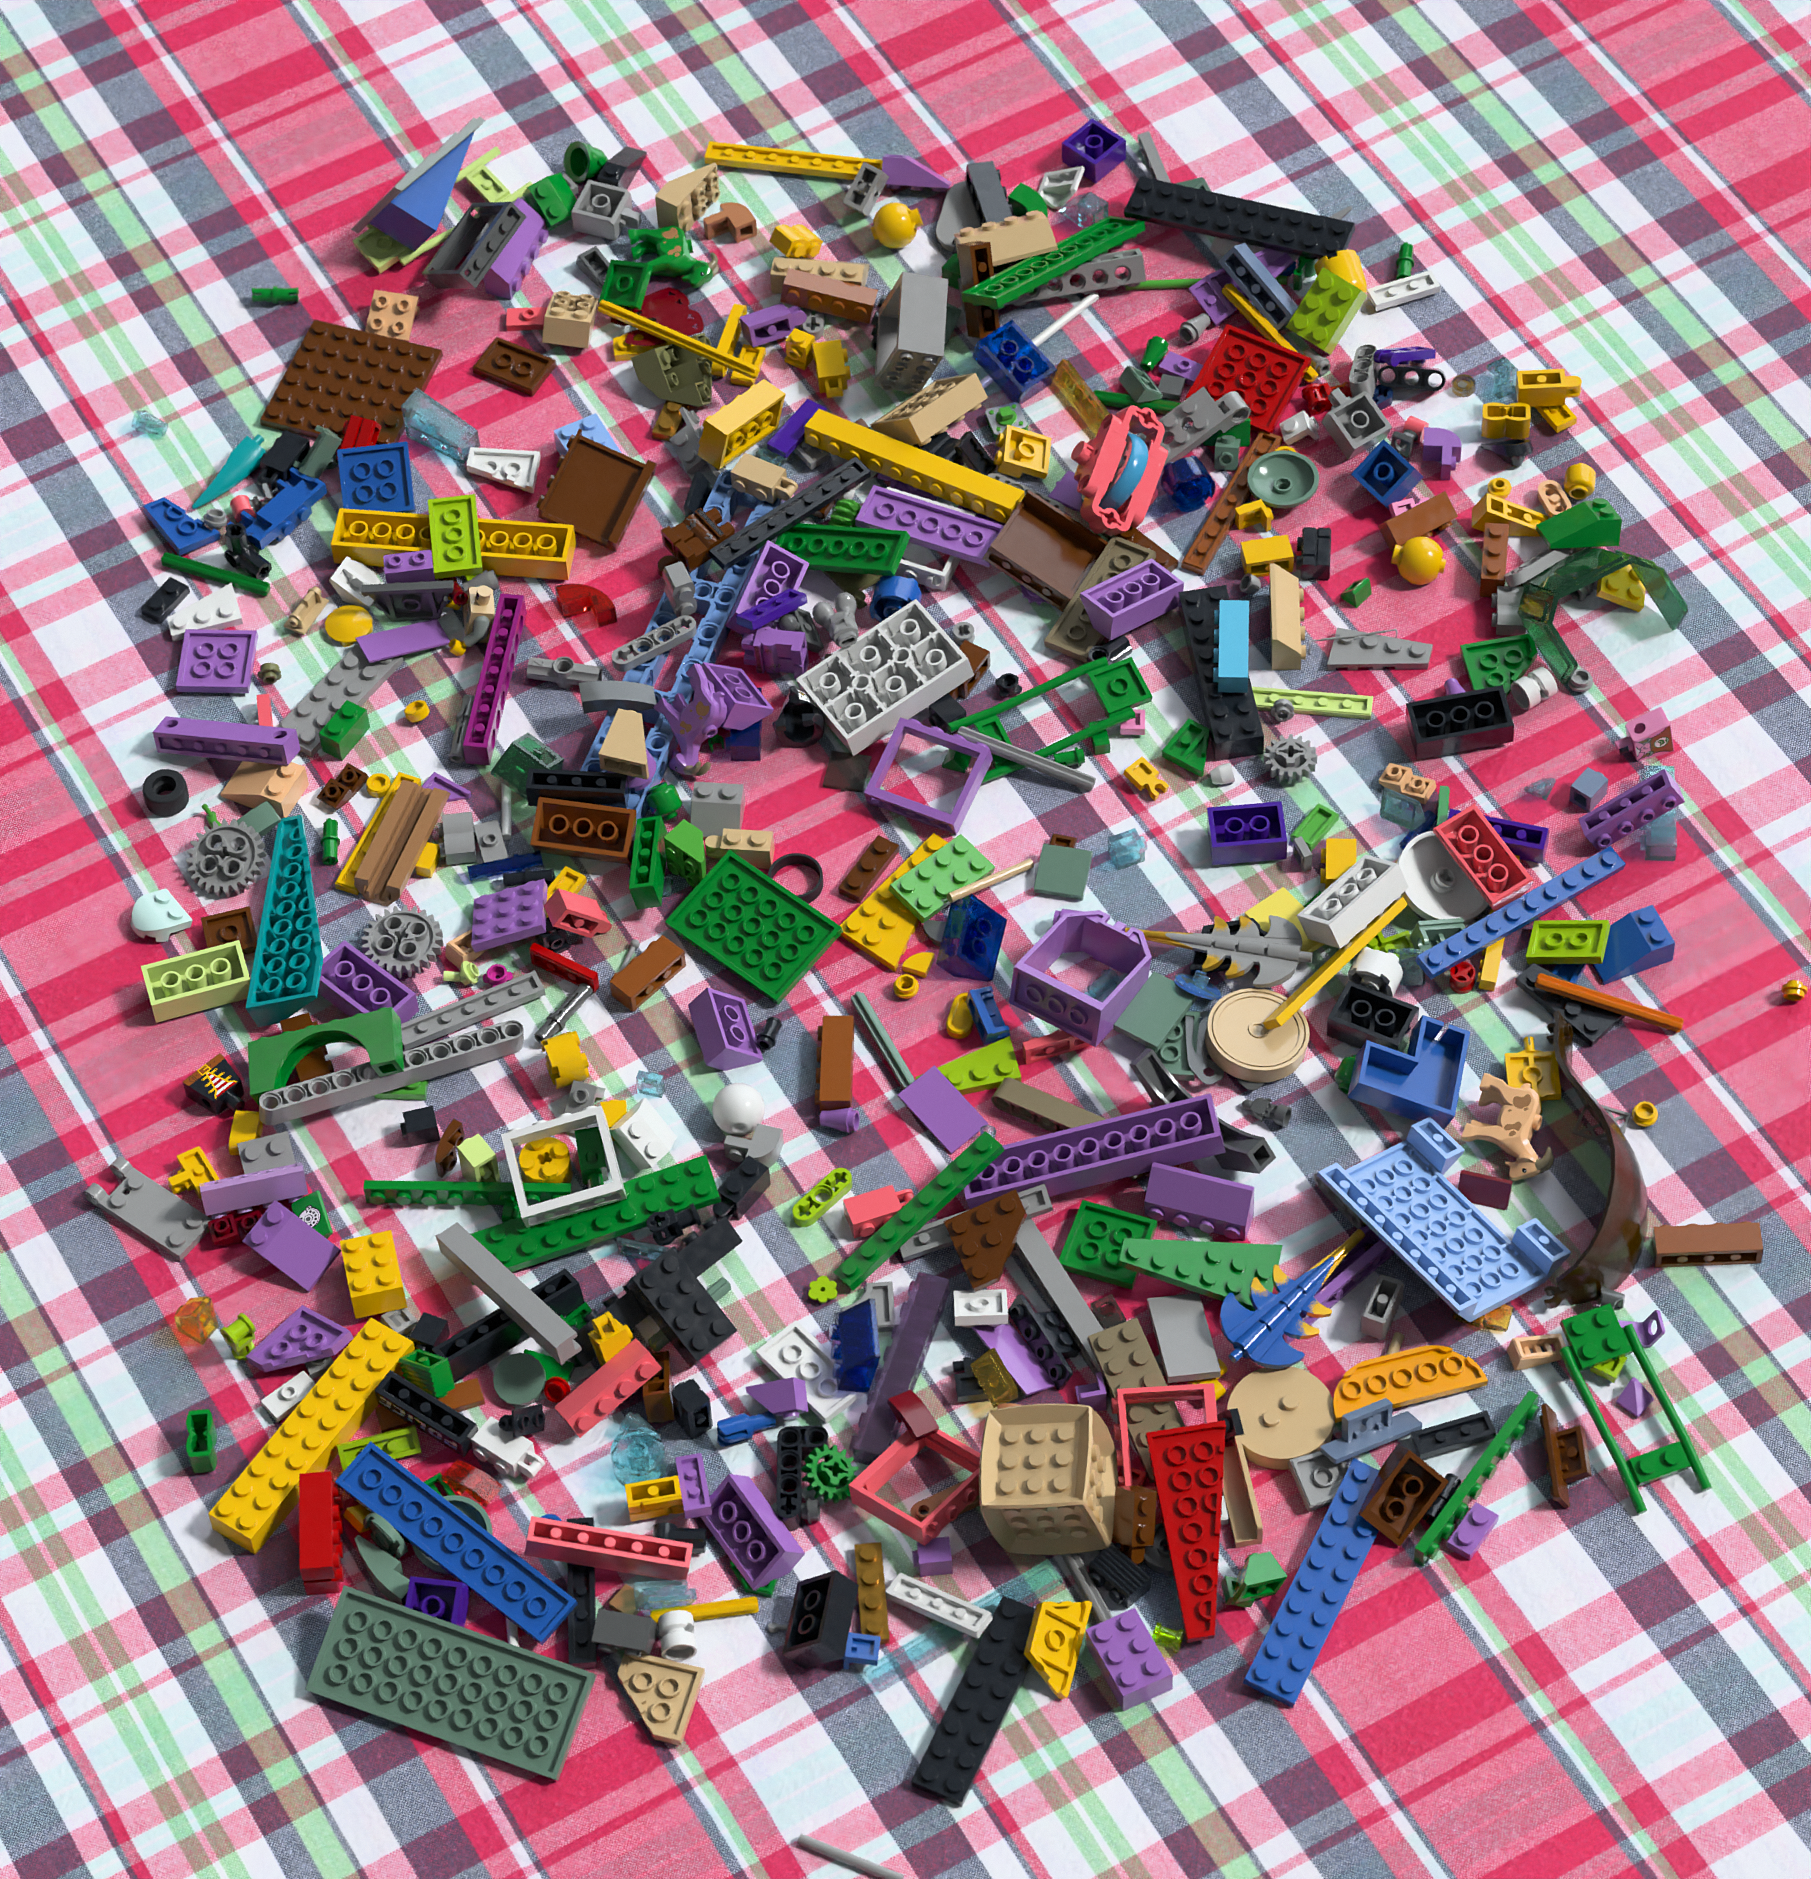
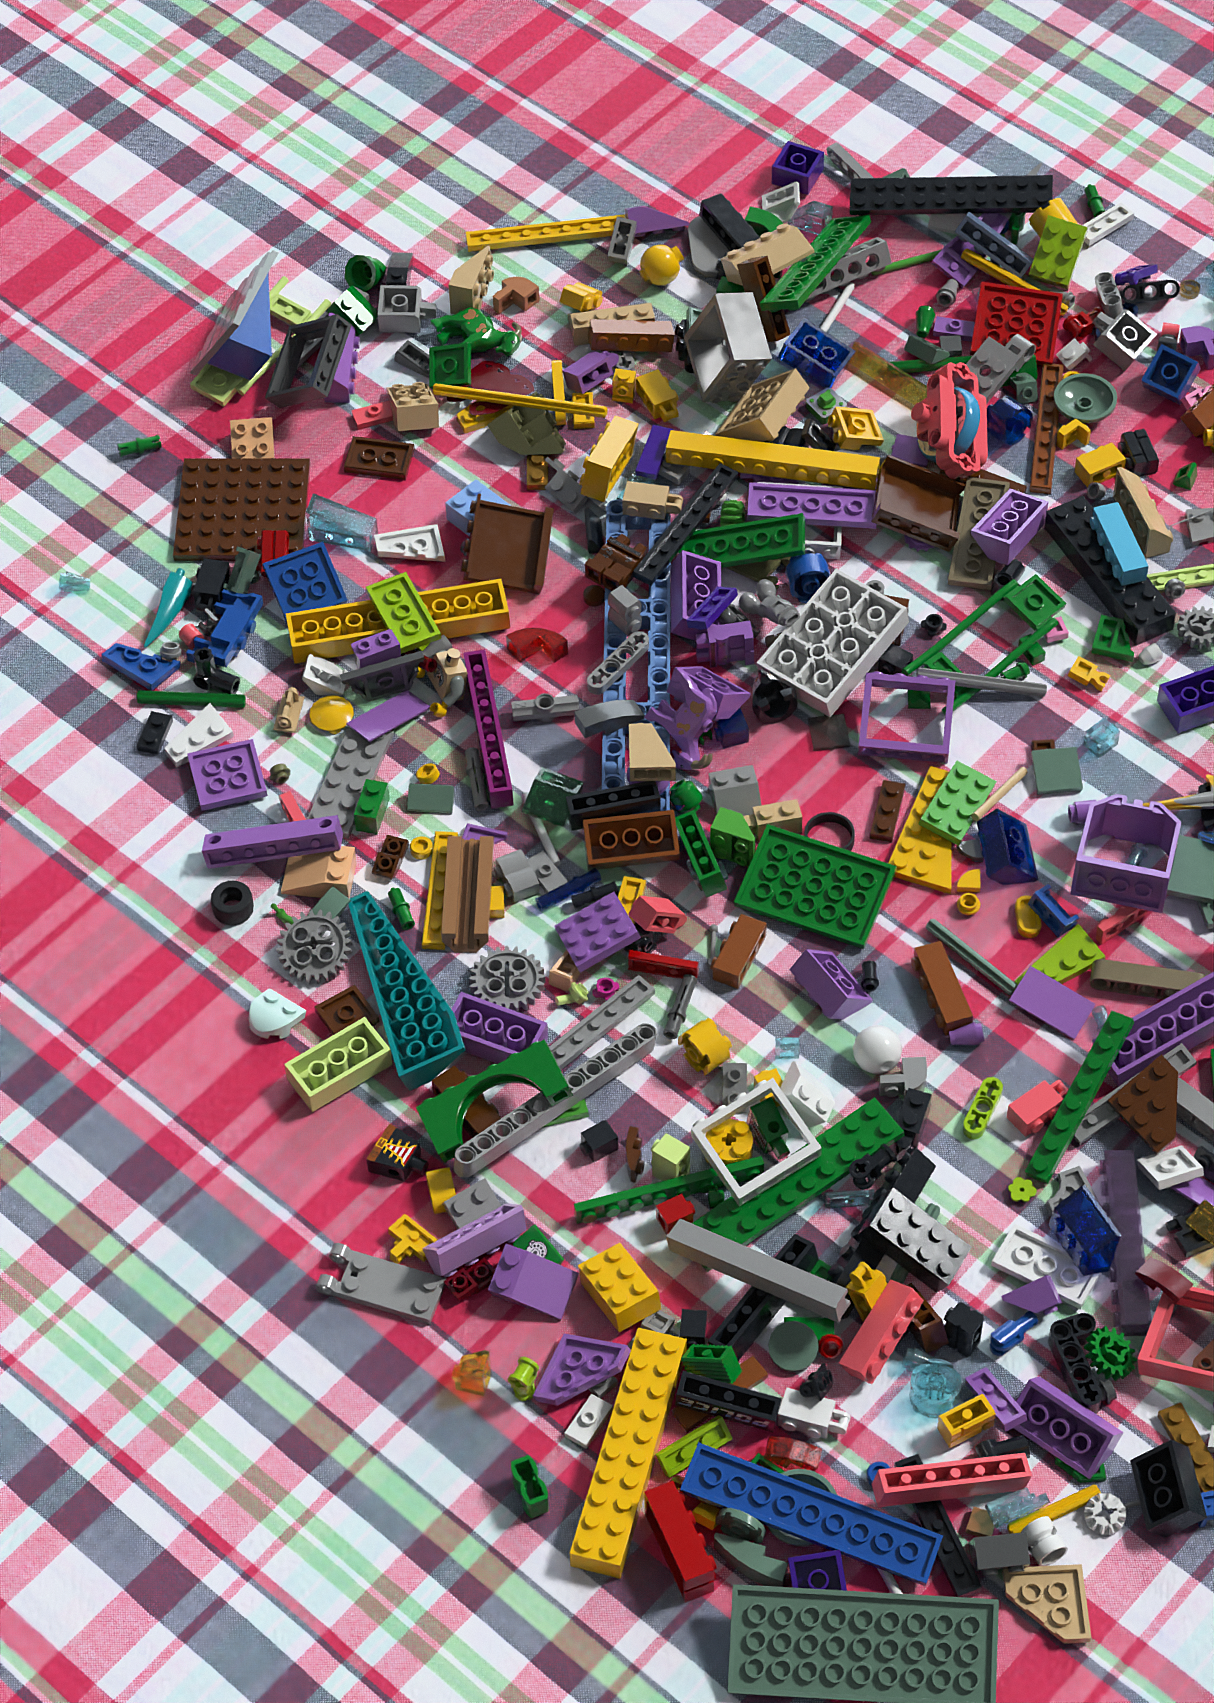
camera: 20 degrees left, 0 degrees up
(409, 737) = (430, 798): none -> sand green slope
(463, 1213) = (672, 1210): none -> red brick
(761, 1636) = (1100, 1524): none -> white gear

